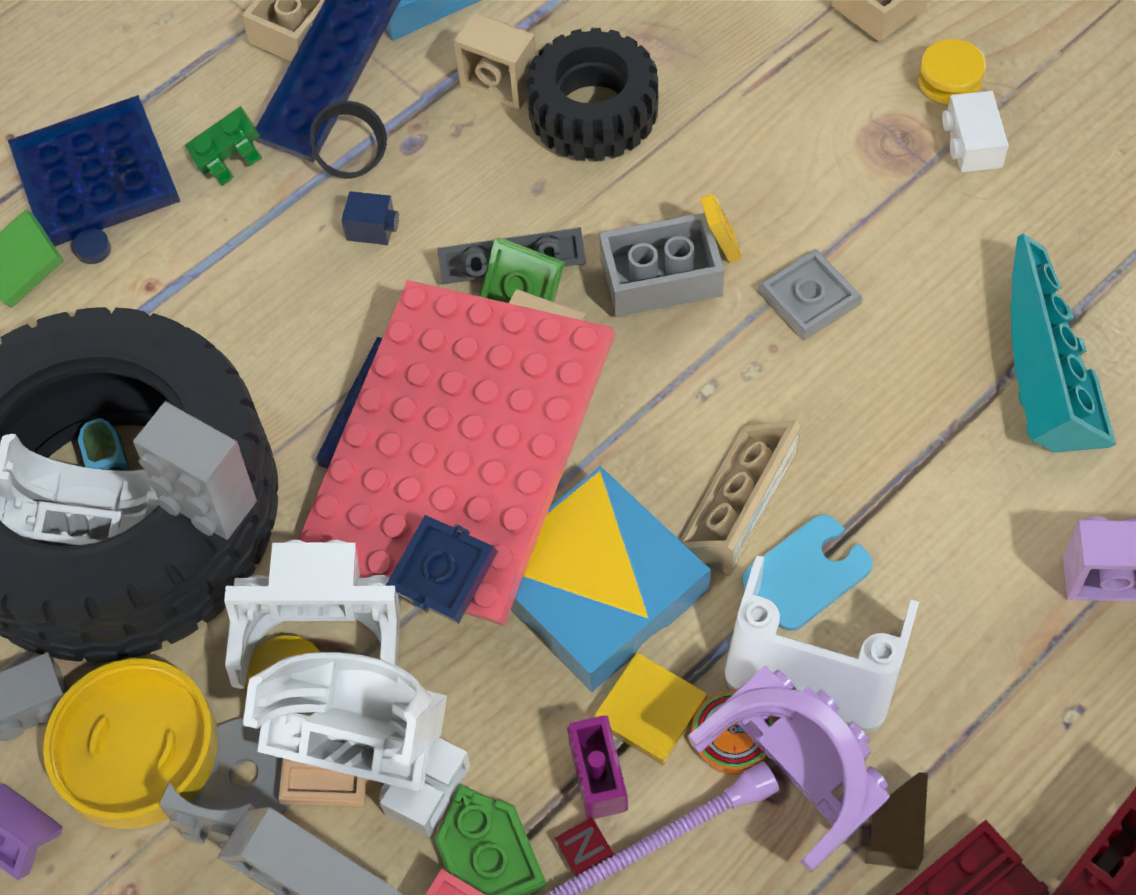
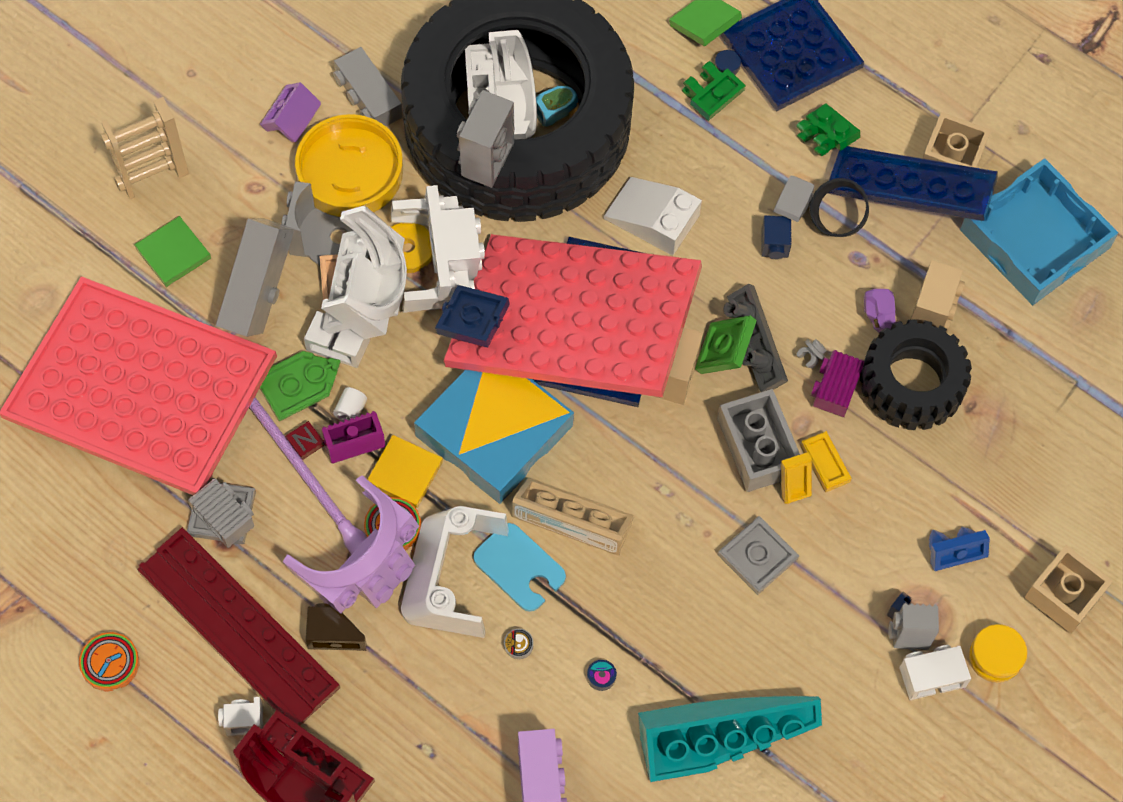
camera: 75 degrees right, 5 degrees up
(139, 260) = (717, 94): none -> green plate
(302, 350) = (655, 213): none -> white slope
(324, 183) = (794, 198): none -> light grey slope
(495, 121) = (880, 308): none -> medium lavender rock
(538, 773) = (350, 404): none -> white gear
(539, 195) = (816, 350): none -> light grey plate
(588, 178) = (838, 383): none -> magenta brick
(684, 203) = (826, 461): none -> yellow tile
(820, 102) = (964, 548): none -> blue tile
(888, 156) = (898, 603): none -> dark blue tile
(921, 582) = (518, 643): none -> tile
(925, 133) = (914, 626): none -> light grey brick
(968, 486) = (601, 675): none -> tile

